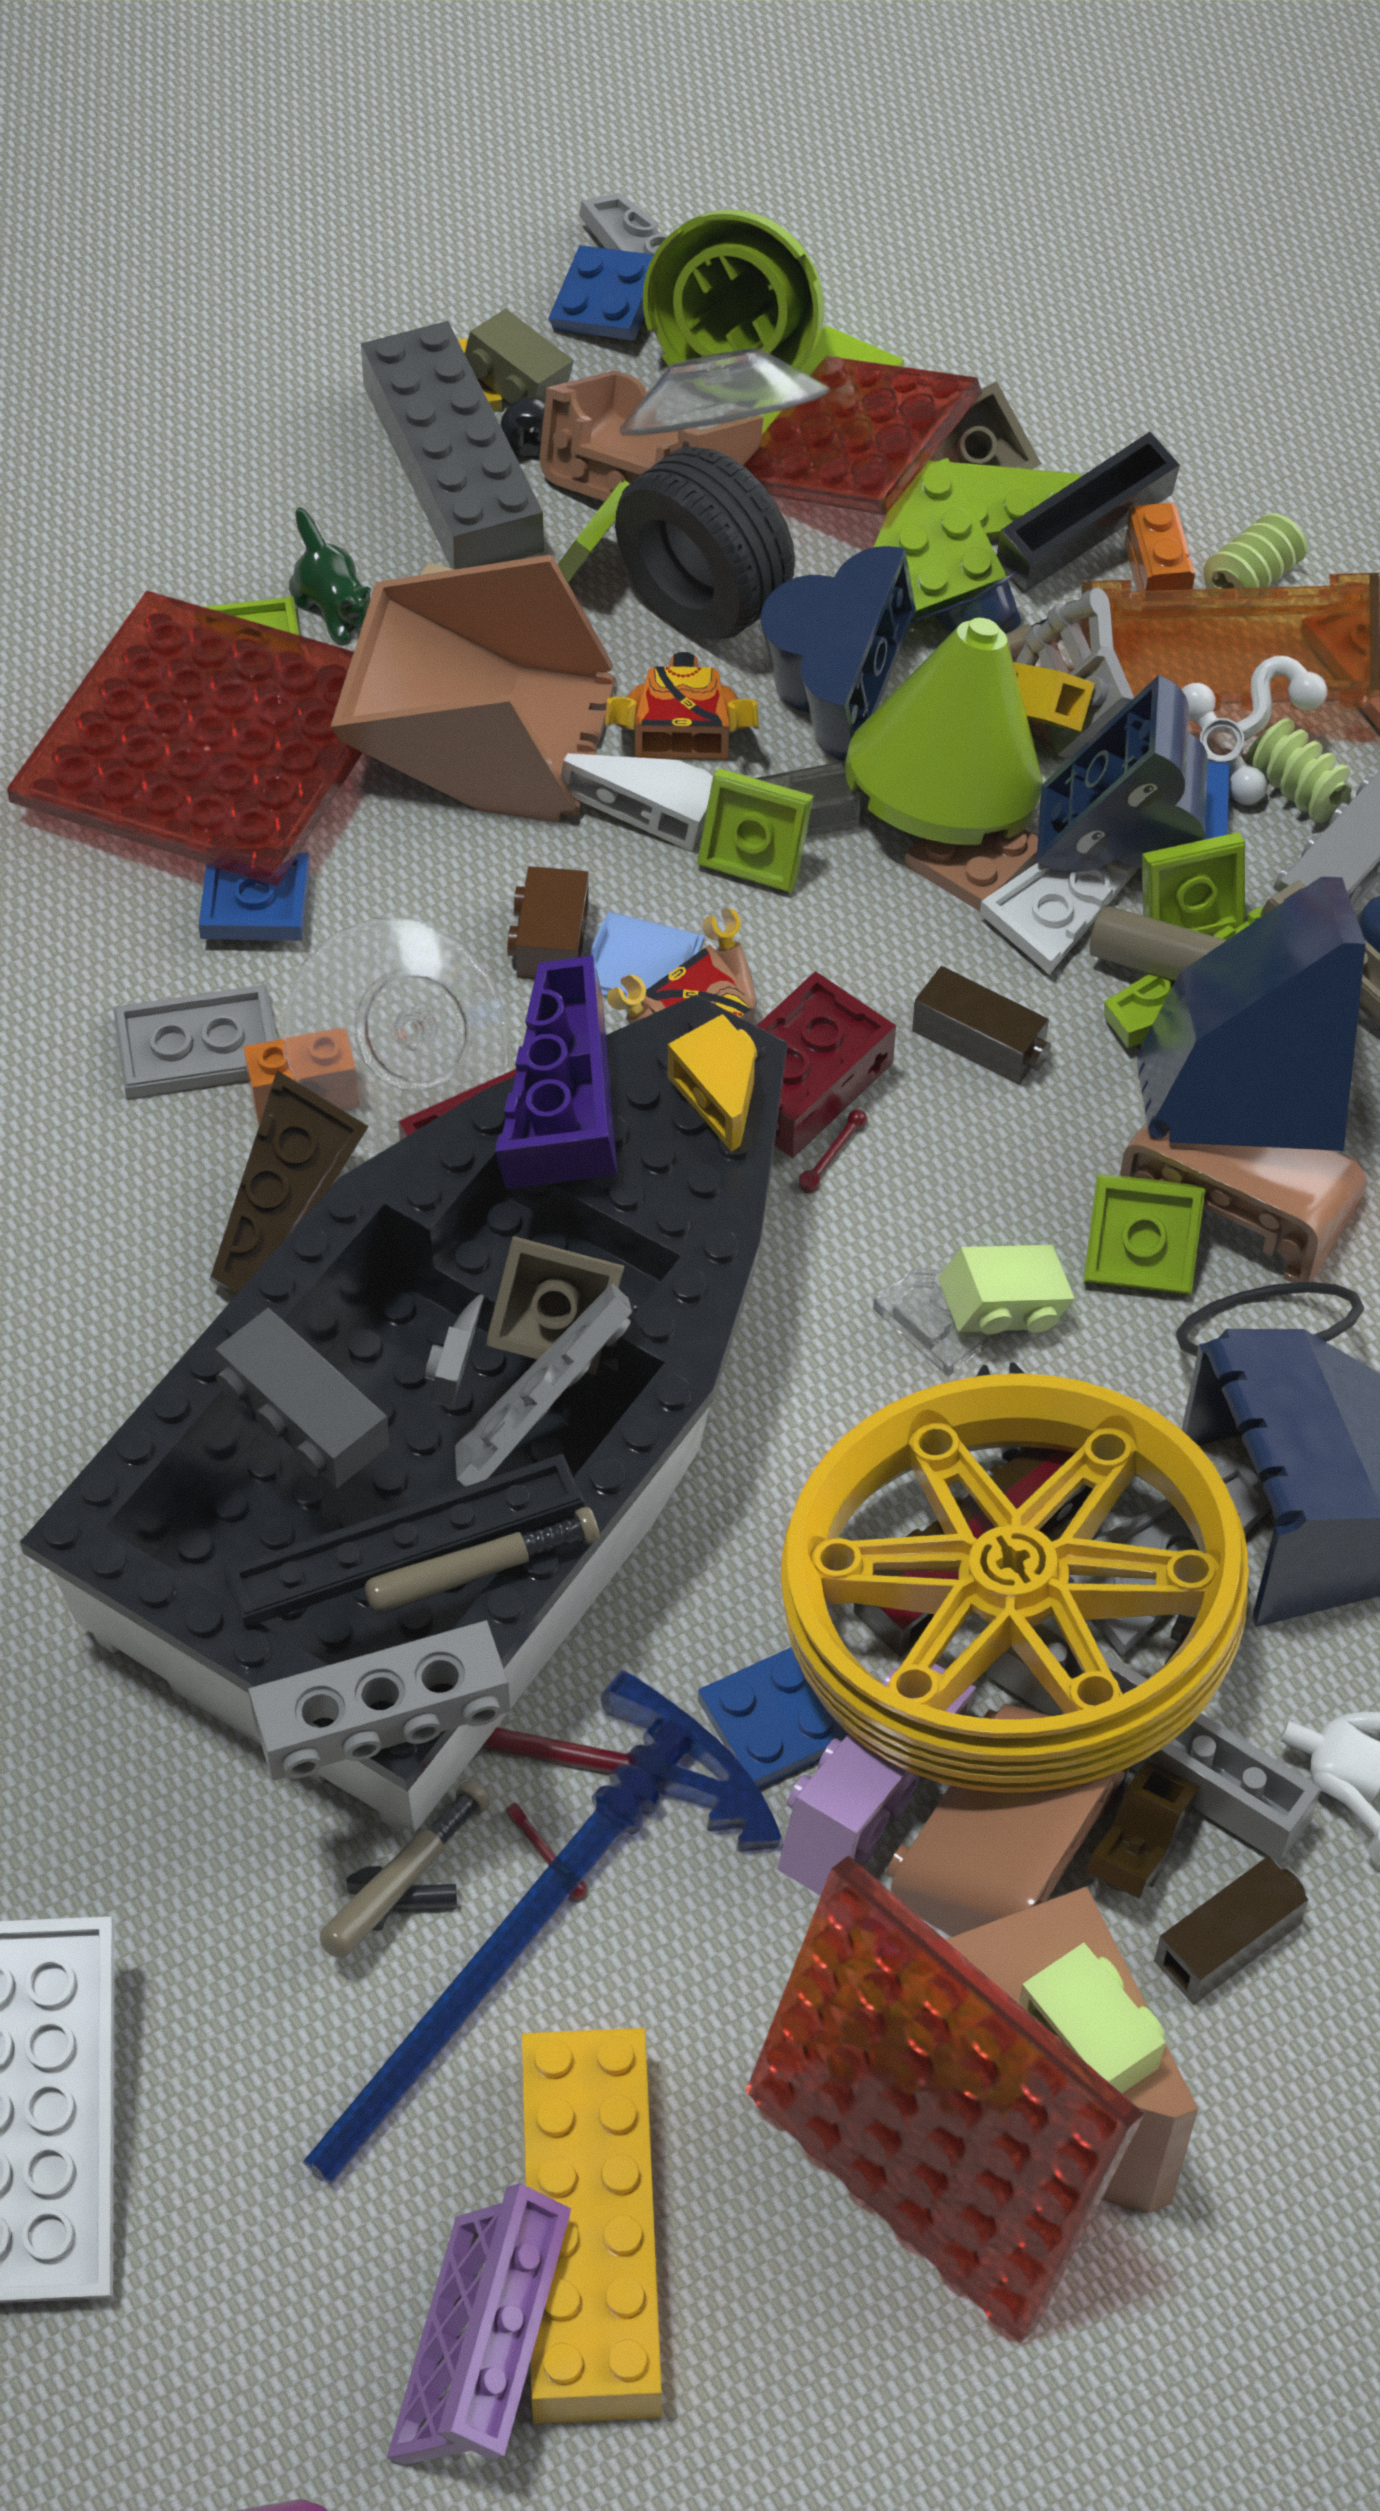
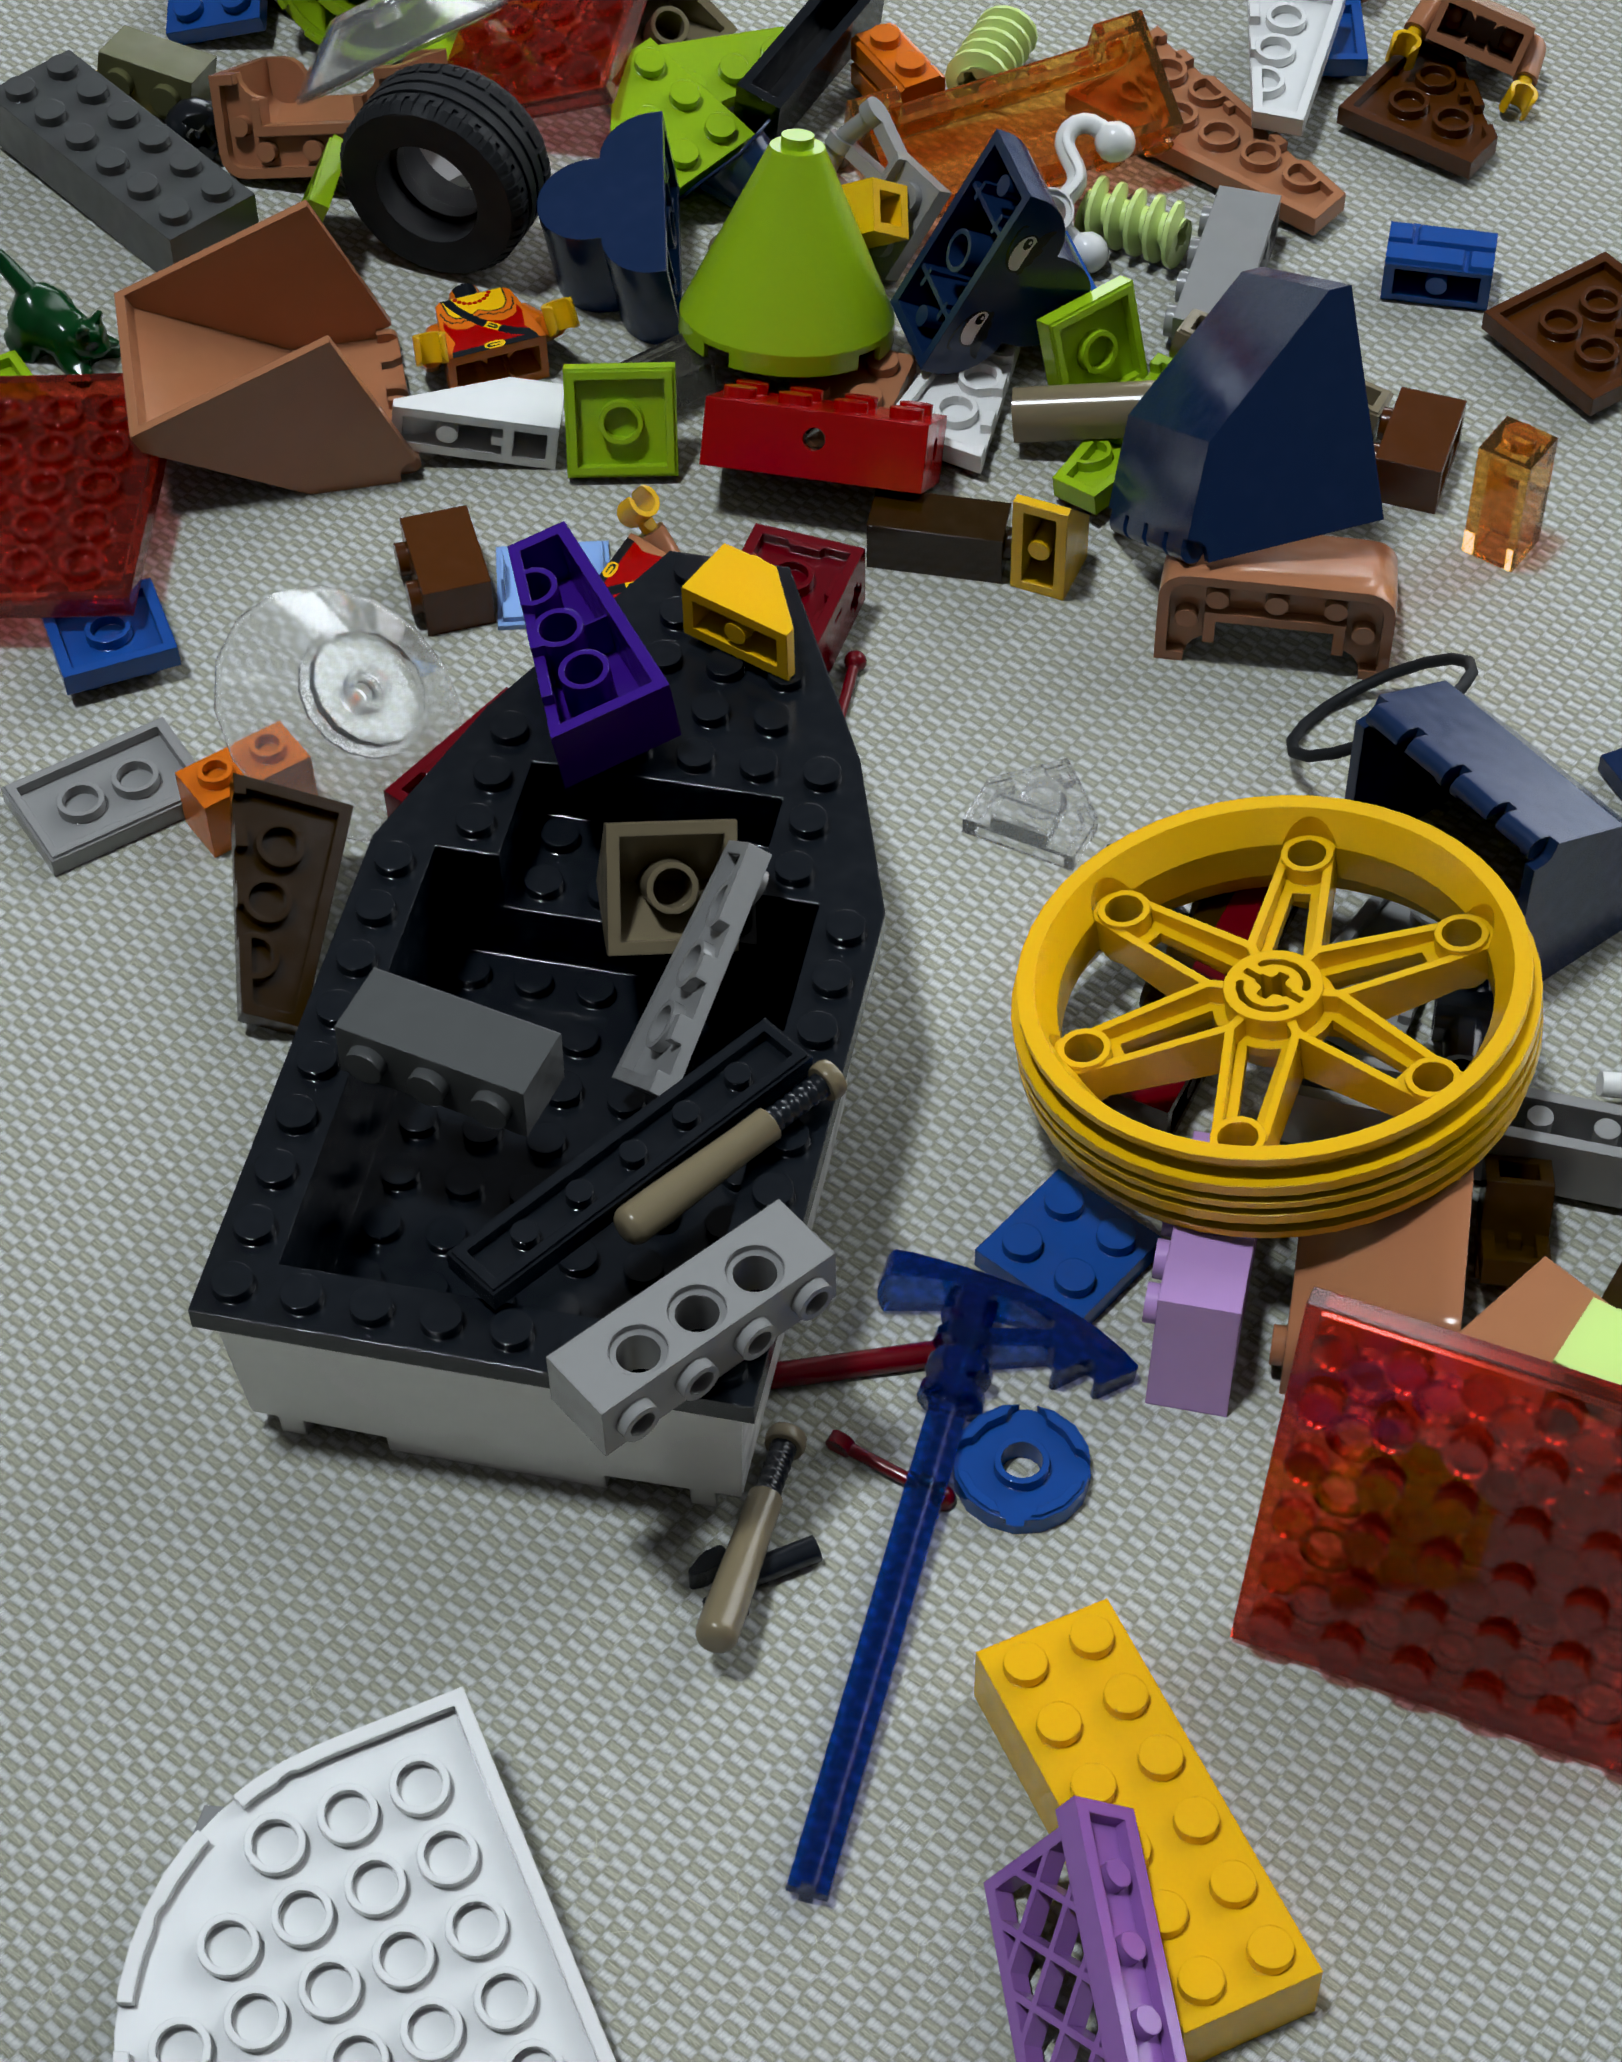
camera: 20 degrees left, 5 degrees down
(448, 1362) = (583, 979): light grey plate -> none
(655, 1920) = (1015, 1502): none -> blue tile
(916, 905) = (822, 438): none -> red brick
(1005, 1288) = (1099, 761): yellowish green brick -> none
(1065, 1066) = (1047, 546): none -> yellow slope
(1144, 1233) = (1209, 669): lime tile -> none

